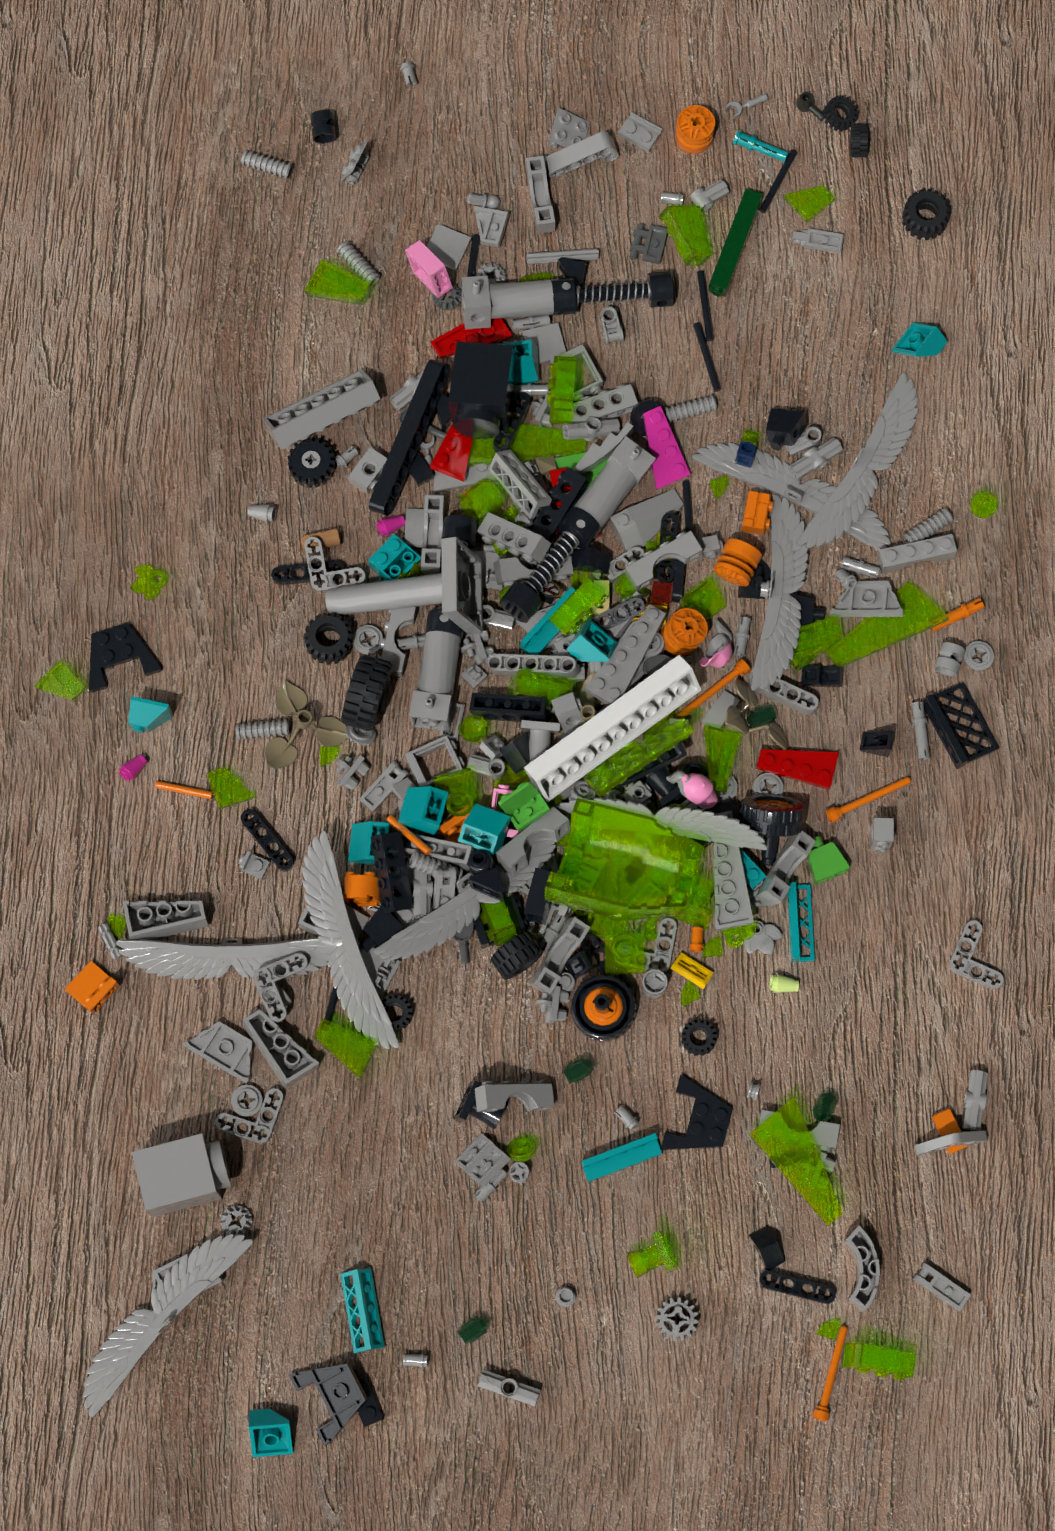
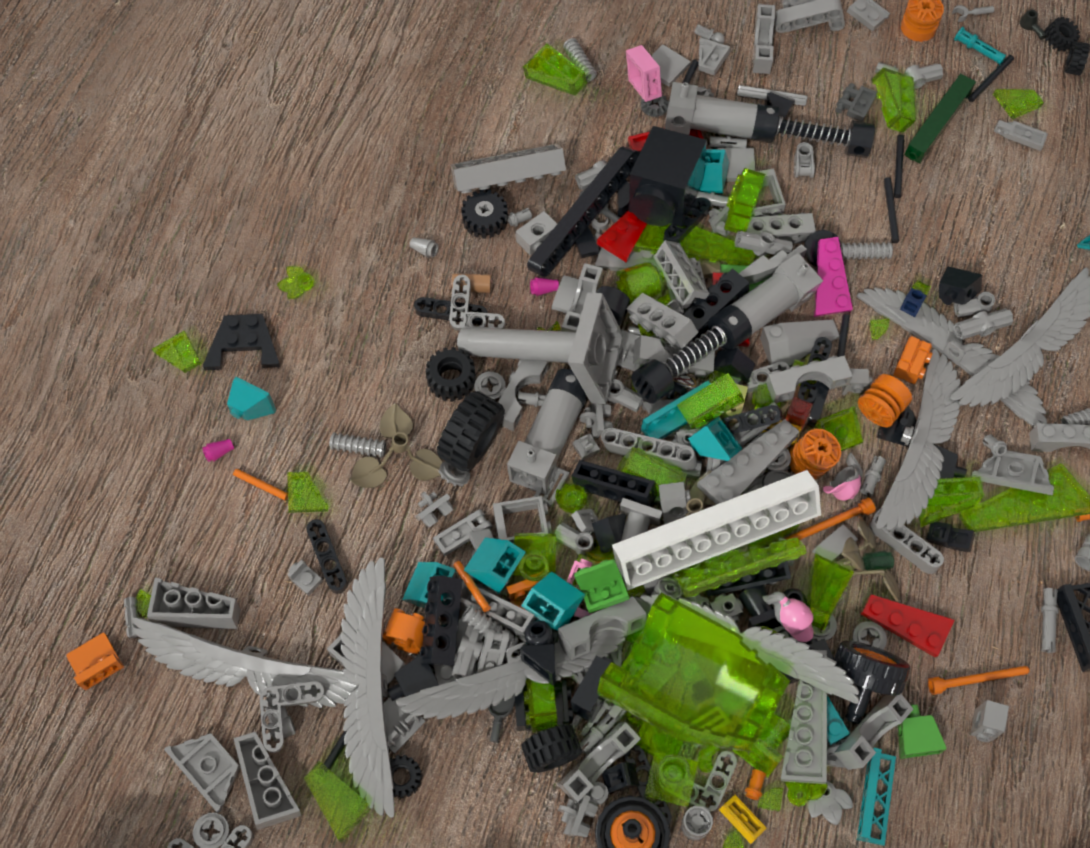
camera: 15 degrees right, 10 degrees down
(327, 755) = (415, 486): clear neon green tile -> none
(393, 559) = (536, 313): teal slope -> none
(860, 567) = (1011, 438): light grey pin -> none
(877, 742) = (1000, 620): black slope -> none

